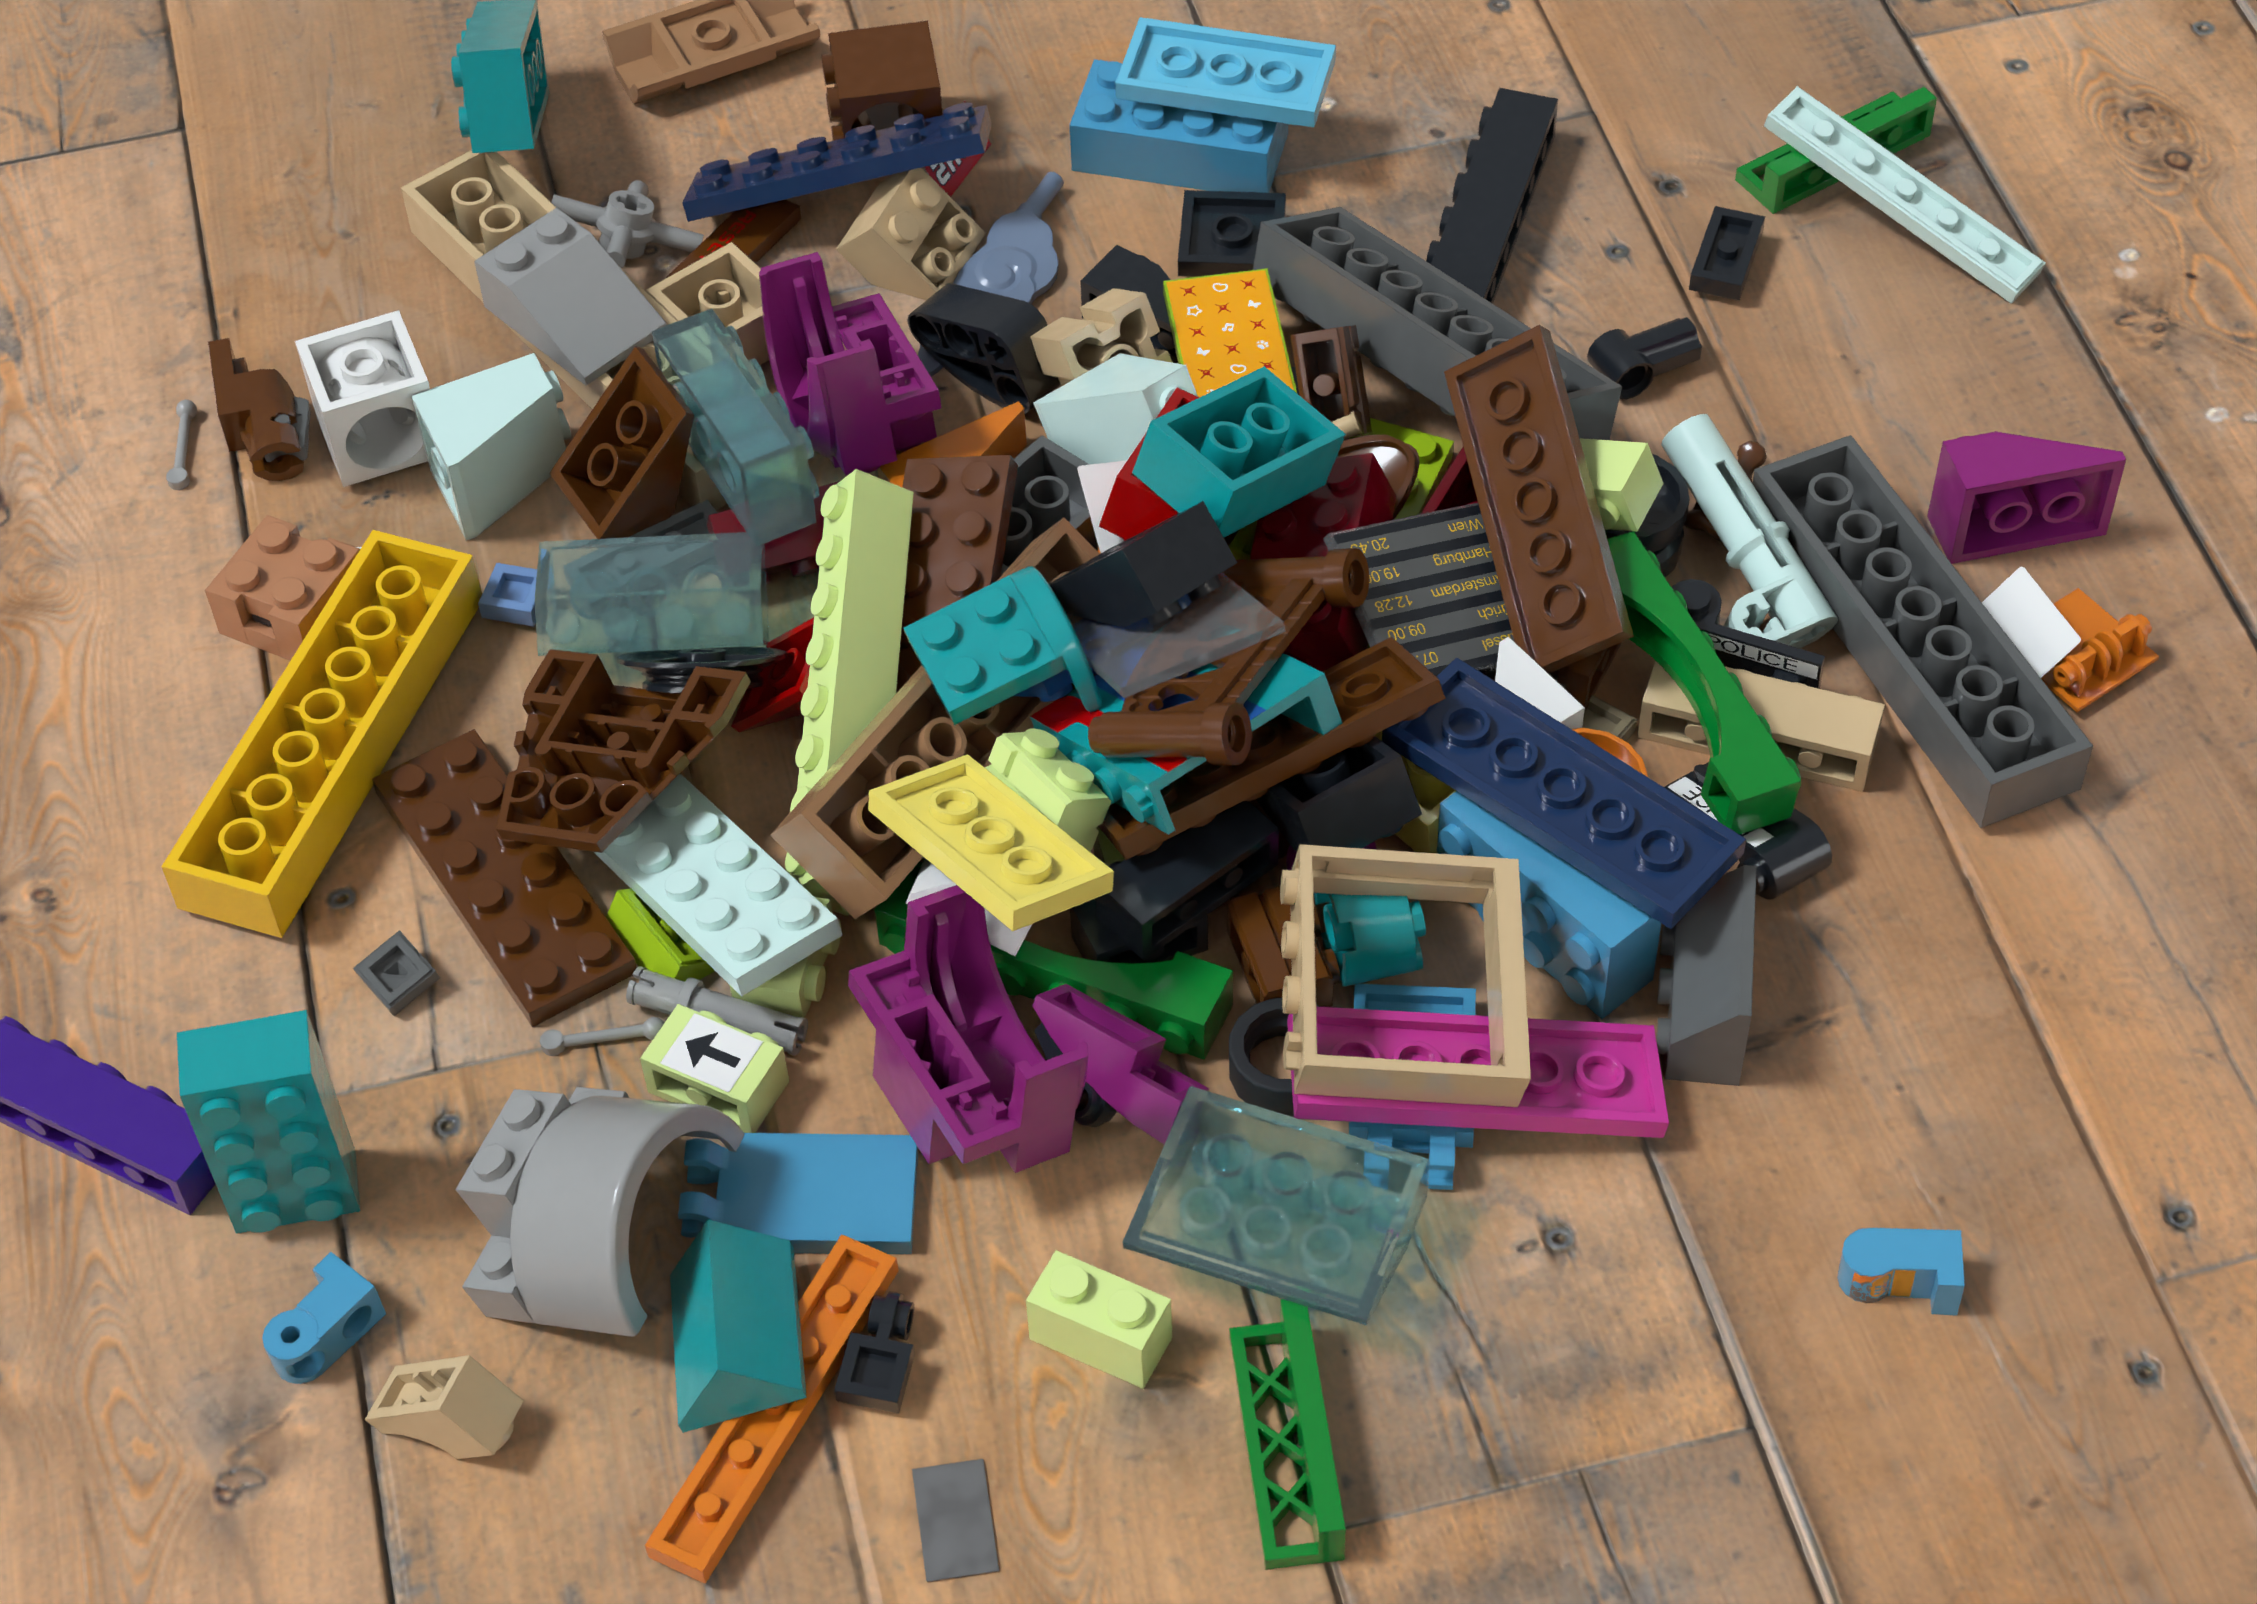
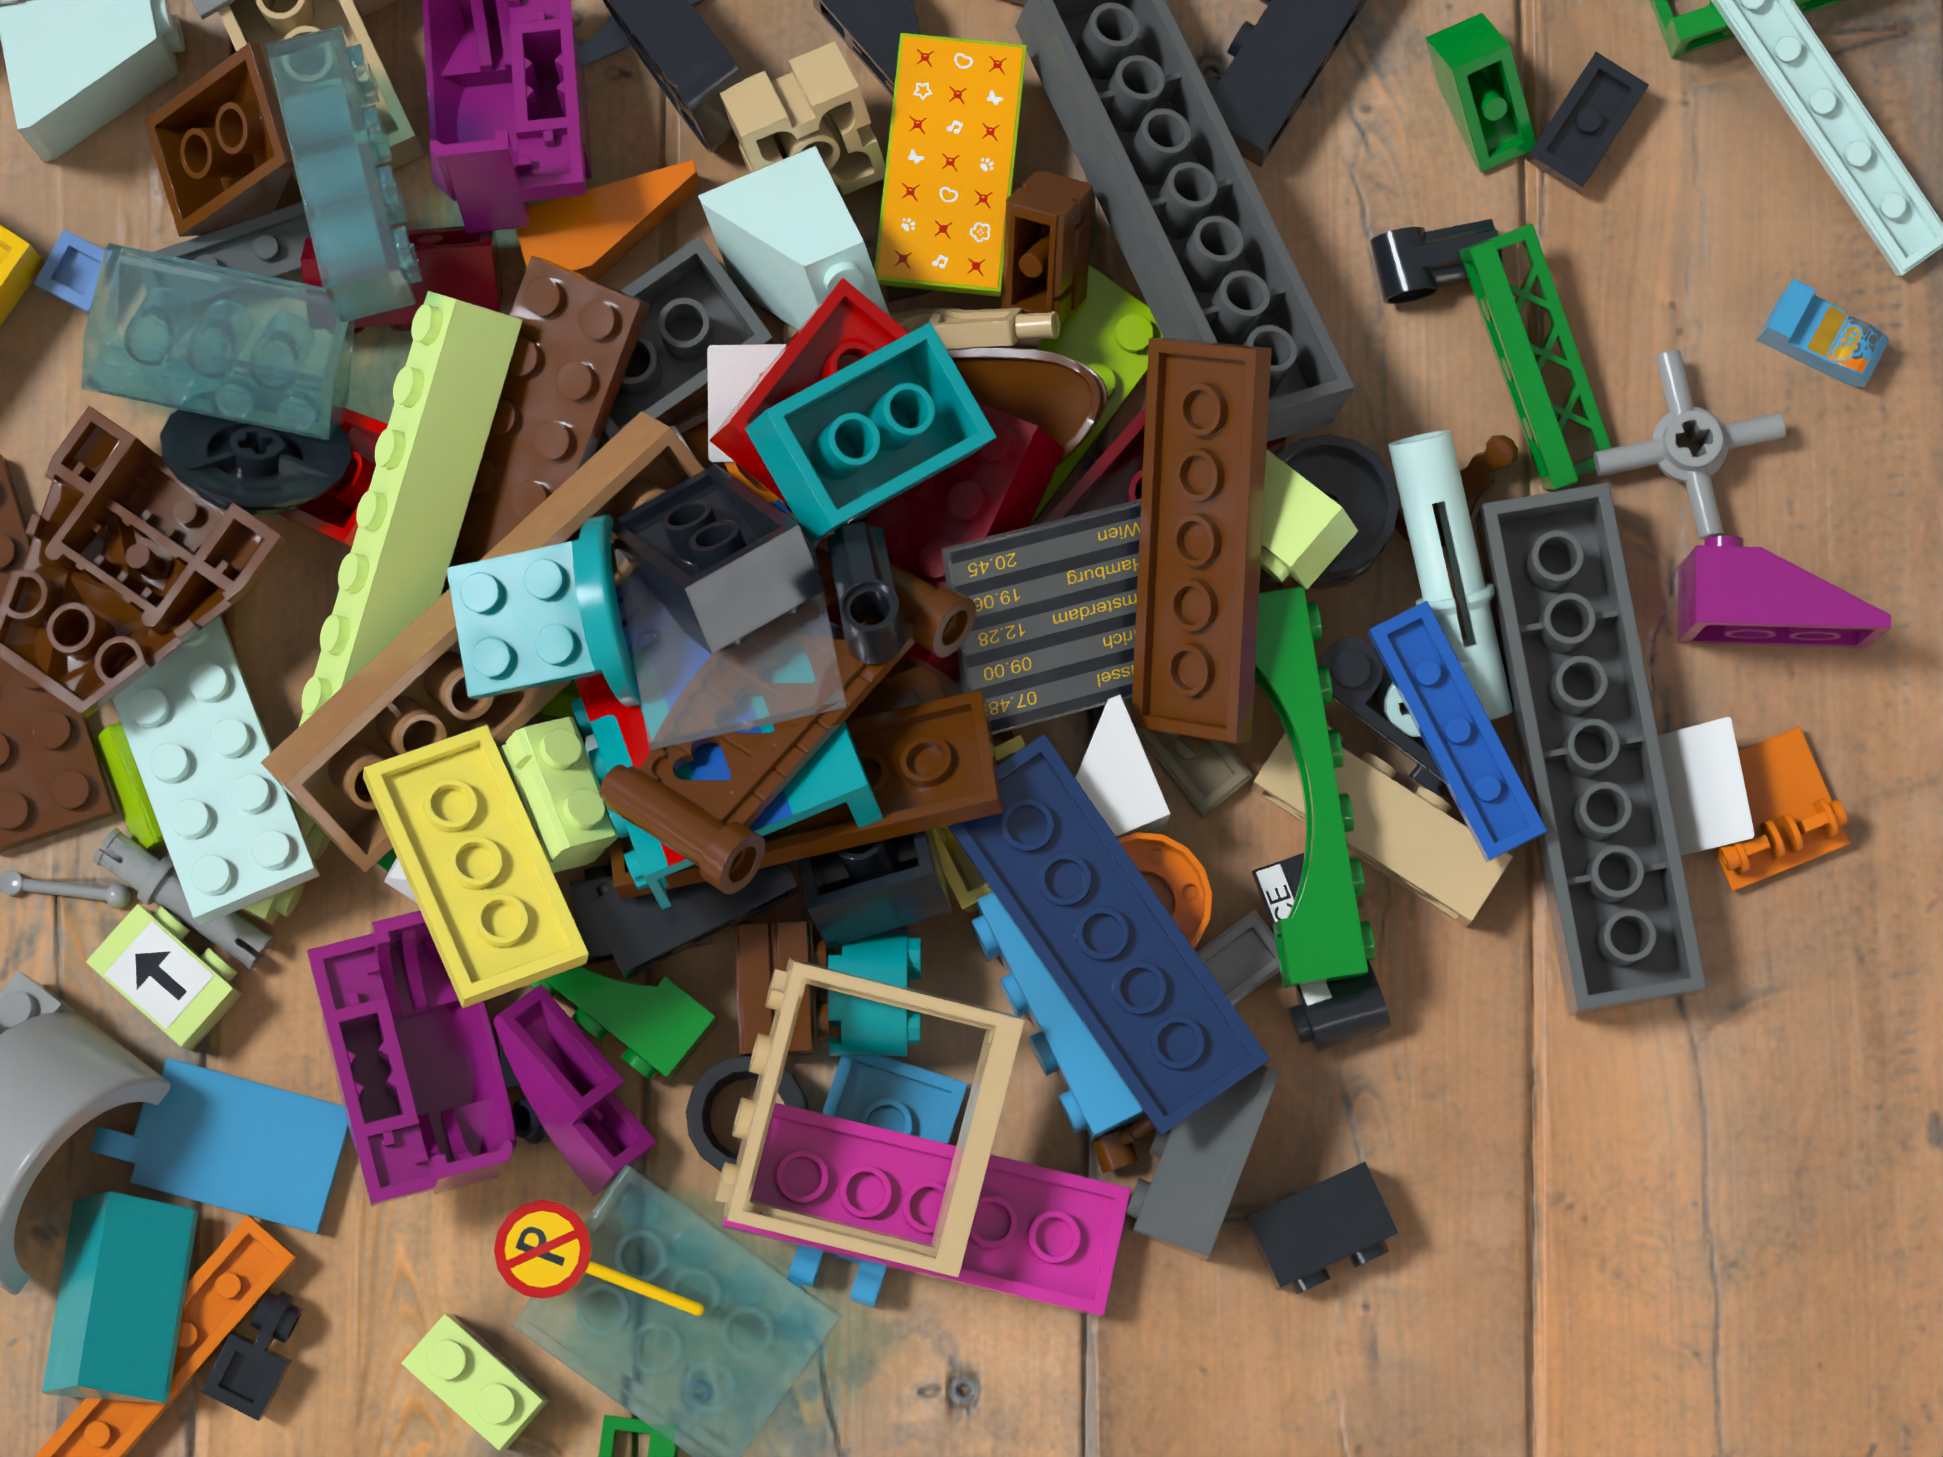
camera: 15 degrees right, 30 degrees up
(1143, 1167) = (548, 1250): none -> piece
(1275, 558) = (866, 592): none -> black piece
(1625, 1004) = (1116, 1148): none -> reddish brown hand
(1637, 247) = (1482, 90): none -> green slope
(1743, 379) = (1518, 361): none -> green fence
(1802, 613) = (1456, 731): none -> blue plate
(1835, 1020) = (1321, 1227): none -> black brick
(1903, 419) = (1699, 426): none -> light grey bar
(1973, 339) = (1823, 336): none -> dark azure leg

